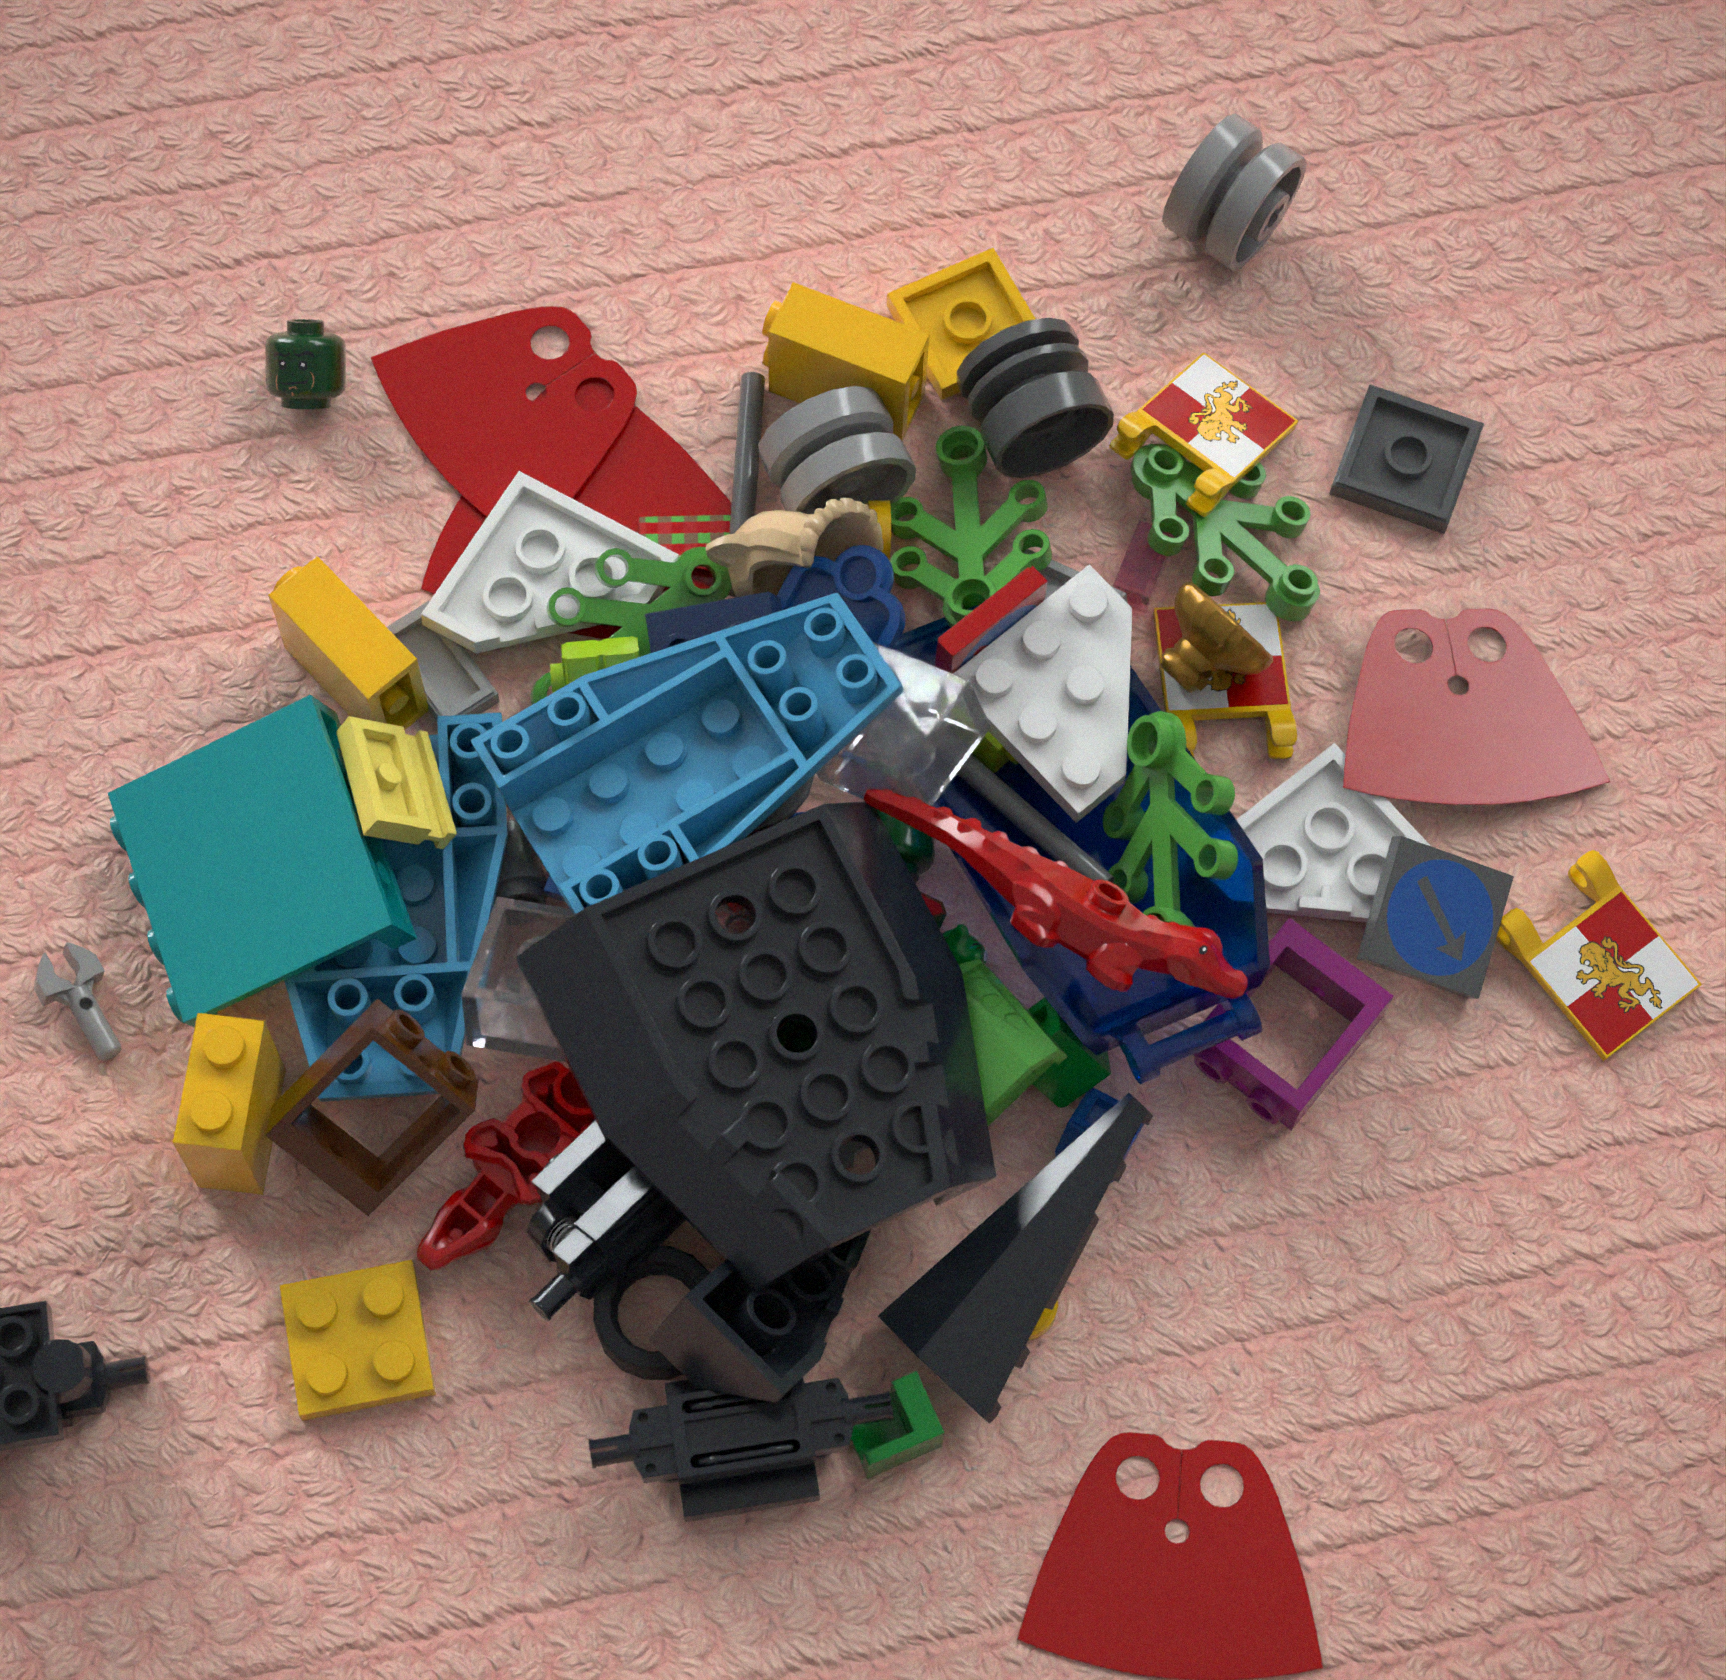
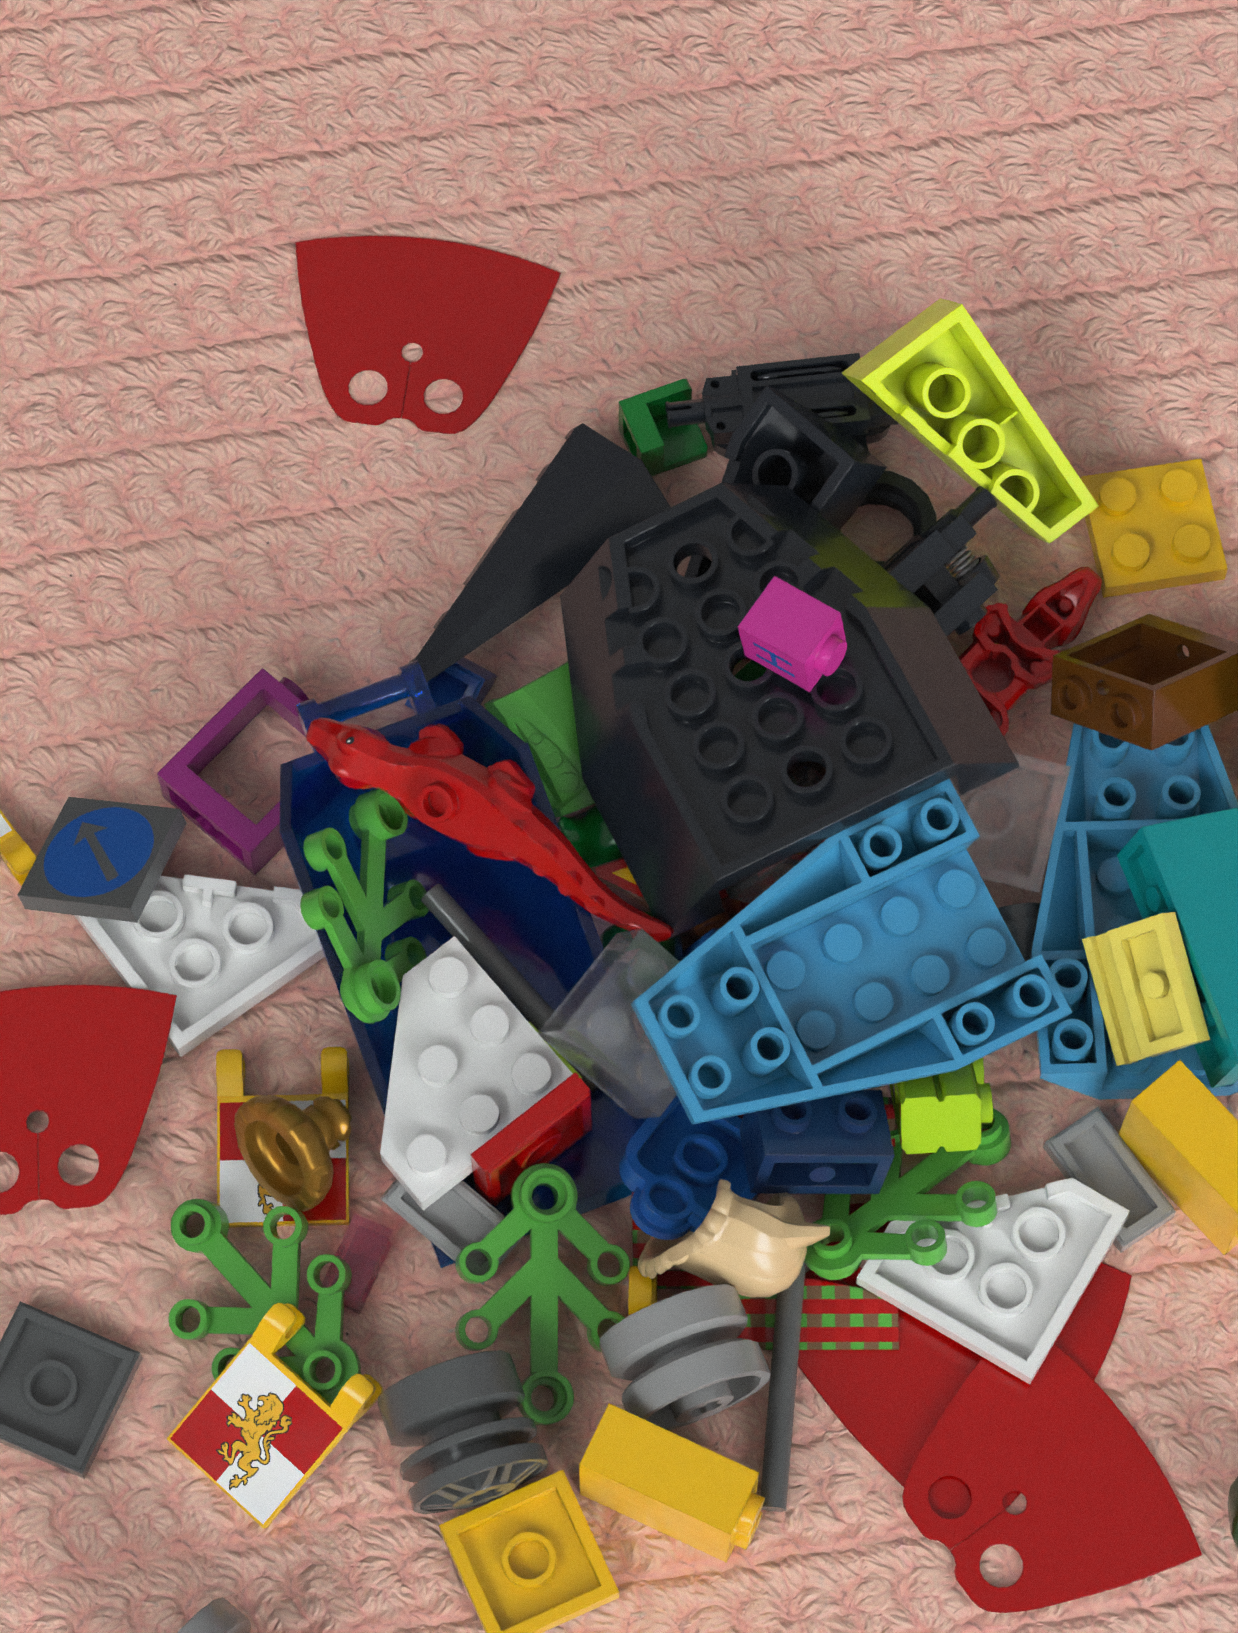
camera: 175 degrees left, 0 degrees up
(563, 1398) = (968, 411): none -> neon yellow wedge
(750, 1034) = (793, 634): none -> dark pink brick

